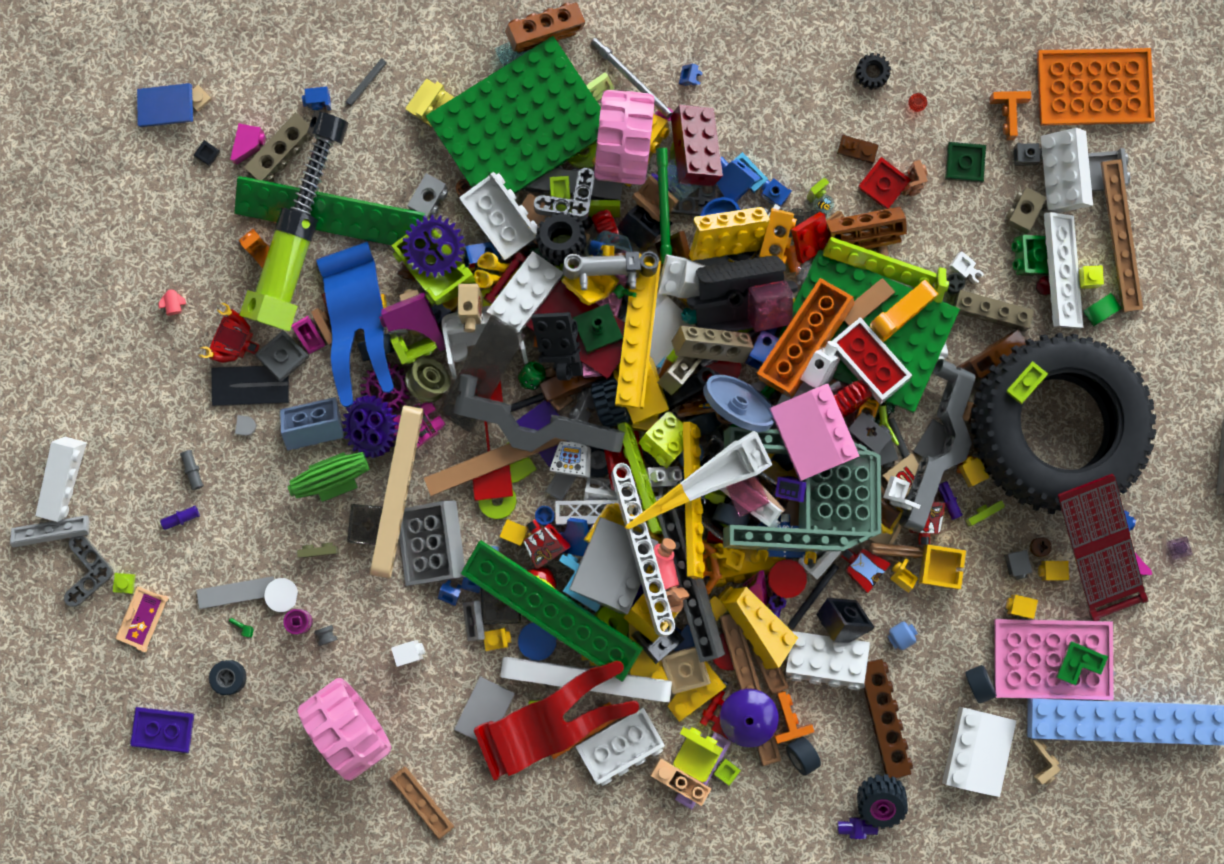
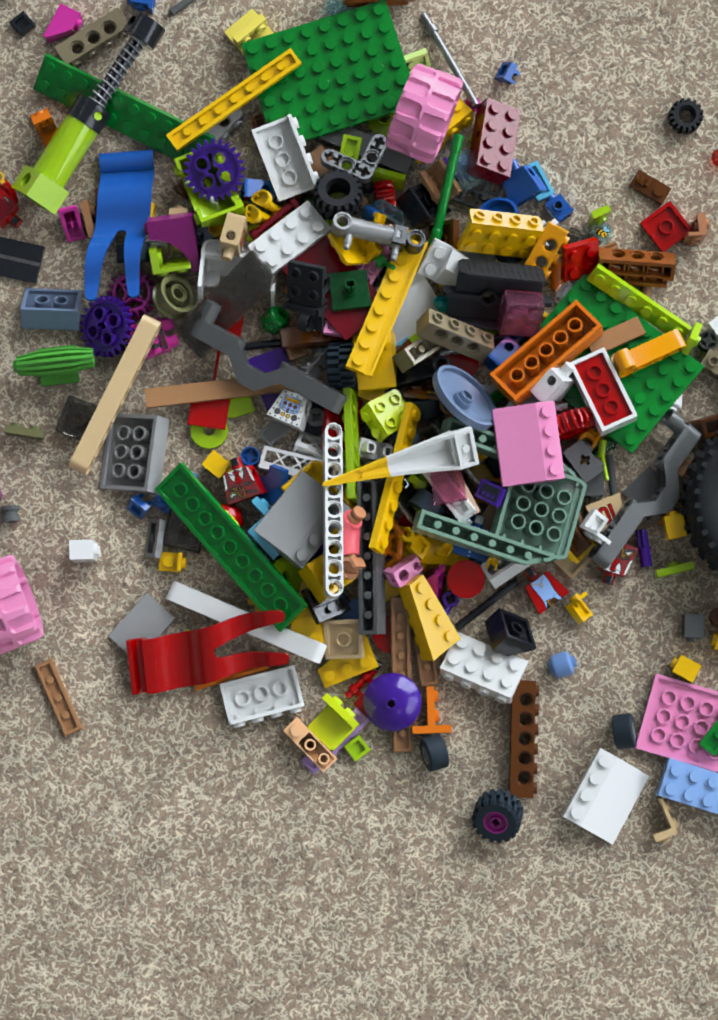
camera: 15 degrees right, 0 degrees up
(281, 355) = (41, 236): dark grey tile -> none
(433, 172) = (234, 99): none -> yellow plate
(536, 642) = (209, 575): blue tile -> none
(725, 588) = (403, 571): none -> bright pink leg
(856, 828) = (466, 836): dark purple axle -> none
(896, 550) = (578, 581): medium nougat axle -> none
(940, 566) = (617, 608): yellow piece -> none

